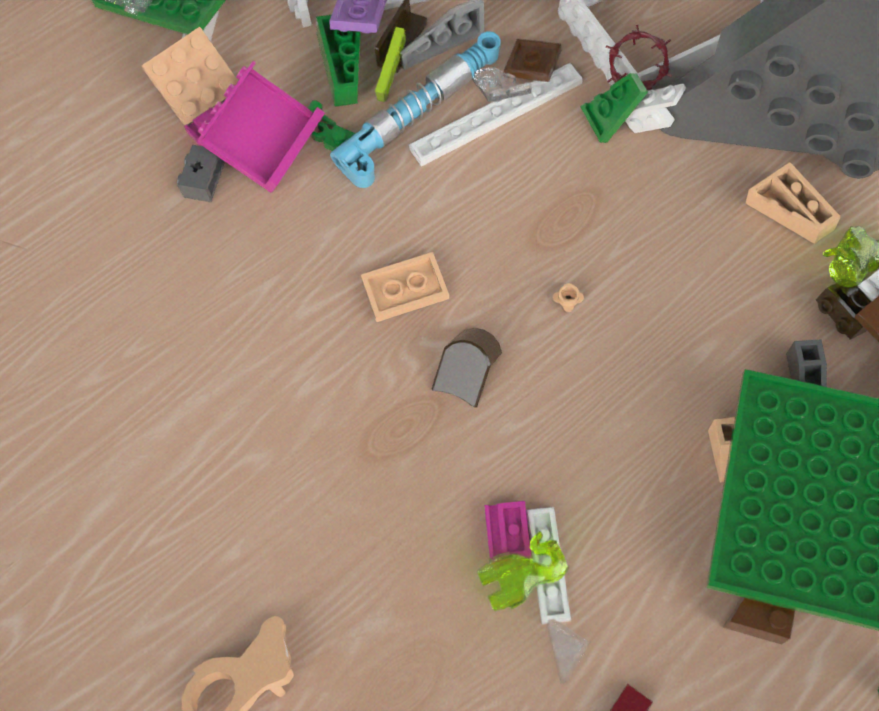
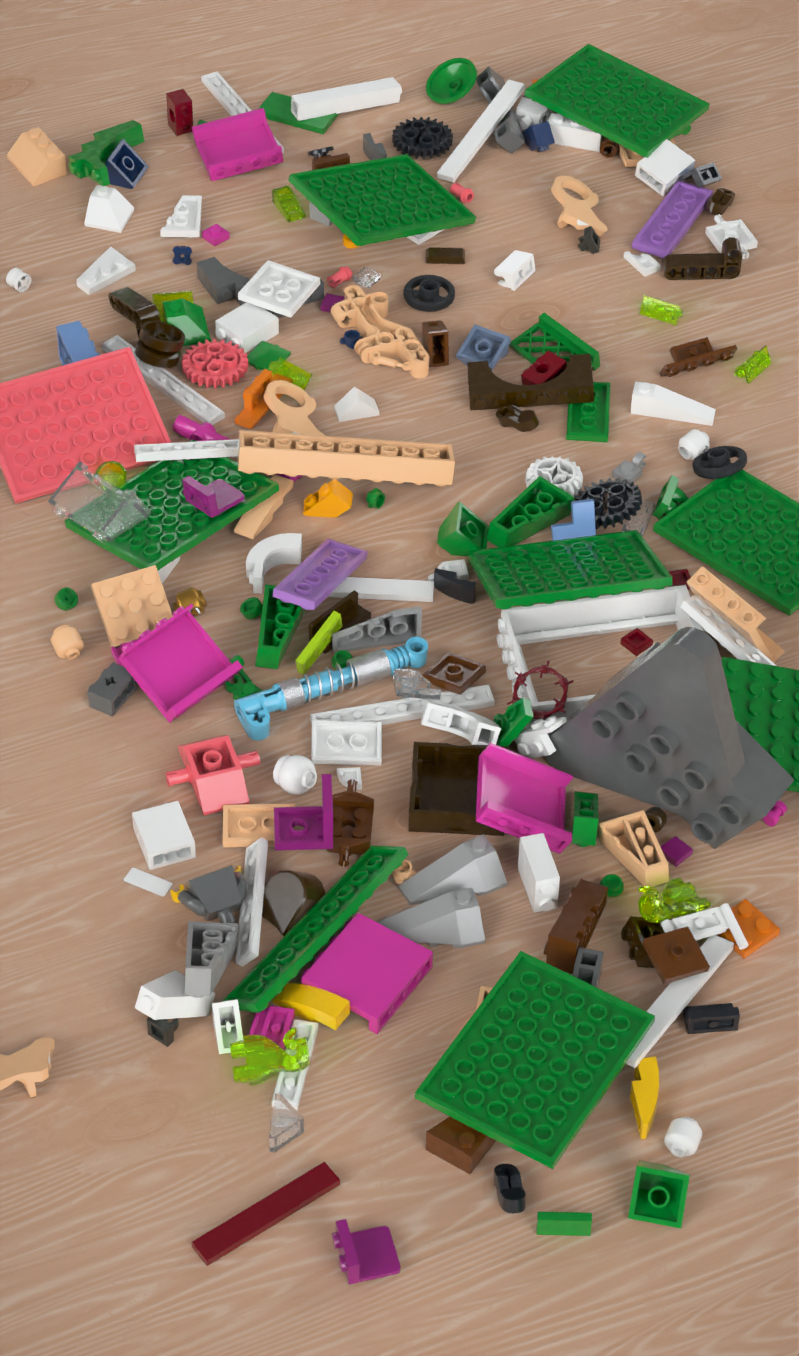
camera: 10 degrees right, 20 degrees down
(121, 85) = (66, 599): none -> green tile
(137, 133) = (67, 642): none -> light nougat head
(244, 53) = (191, 596): none -> pearl gold head
(308, 44) = (251, 608): none -> green tile
(312, 327) = (163, 835): none -> white brick
(313, 385) = (148, 882): none -> white sticker
(338, 239) = (214, 772): none -> coral slope
(391, 385) = (214, 894): none -> dark grey torso
(392, 568) = (162, 1030): none -> pearl dark grey tile
(394, 529) = (166, 999): none -> white slope
(411, 466) = (208, 955): none -> light grey wedge
(417, 75) = (341, 658): none -> green plate
(422, 219) = (295, 774): none -> white piece
(432, 382) = (252, 905): none -> white tile
(457, 166) = (346, 743): none -> white tile
(463, 546) = (226, 1024): none -> white slope
(469, 268) = (315, 820): none -> magenta bracket
(474, 203) = (346, 774): none -> white tile
(494, 241) = (356, 811): none -> reddish brown plate
(509, 399) = (316, 927): none -> green plate
(540, 486) = (314, 1004): none -> yellow slope
(567, 112) = (461, 722): none -> white arch
(581, 428) = (370, 969): none -> dark pink panel
(589, 187) = (446, 789): none -> dark brown tile
(632, 280) = (464, 867): none -> light grey wedge
(633, 345) = (442, 920): none -> light grey wedge
(661, 183) = (522, 796): none -> dark pink panel
(712, 262) = (538, 872): none -> white brick
(726, 184) = (585, 819): none -> green slope
(770, 311) = (575, 924): none -> reddish brown wedge
(781, 251) = (614, 884): none -> green plate
(796, 160) = (656, 818): none -> dark brown piece
(828, 190) = (676, 851): none -> magenta tile
(836, 655) = (509, 1188): none -> black piece

